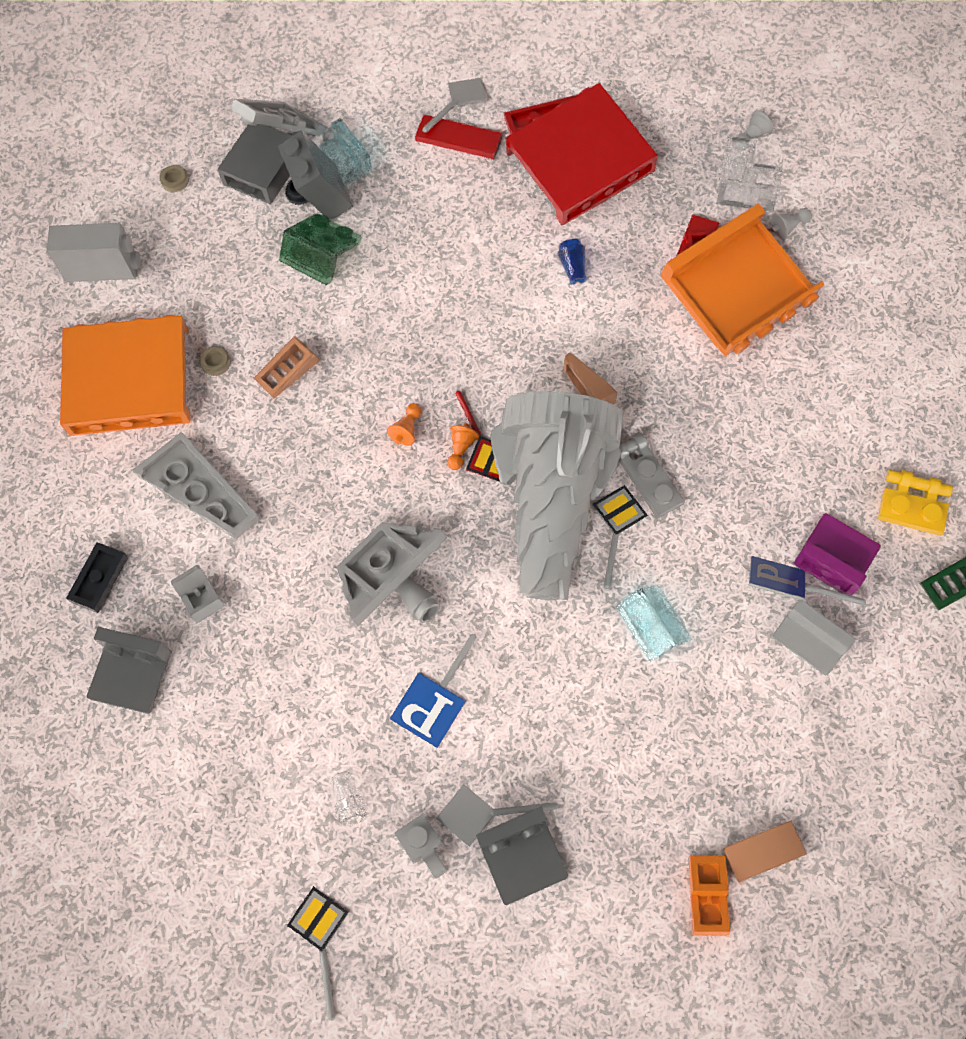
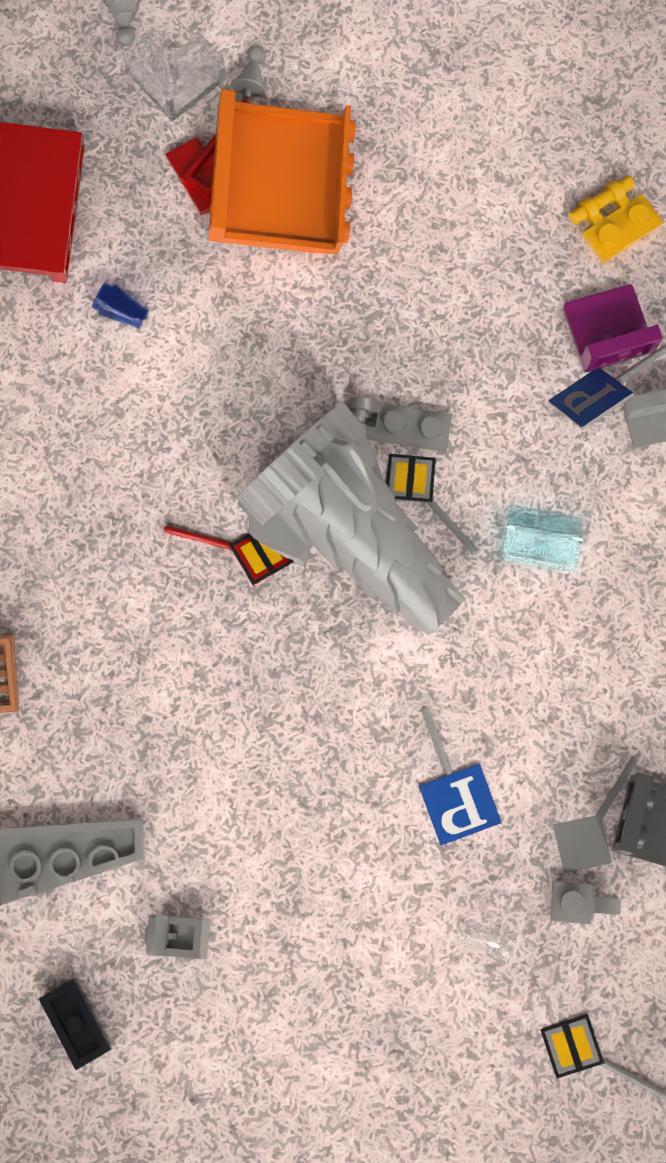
camera: 55 degrees left, 10 degrees up
(128, 670) = (202, 1061): dark grey bracket -> none
(383, 564) = (292, 737): light grey wing -> none
(403, 430) = (164, 611): orange piece -> none
(419, 601) = (349, 732): light grey cone -> none
(462, 439) = (222, 565): orange piece -> none
(587, 381) = (267, 402): nougat slope -> none

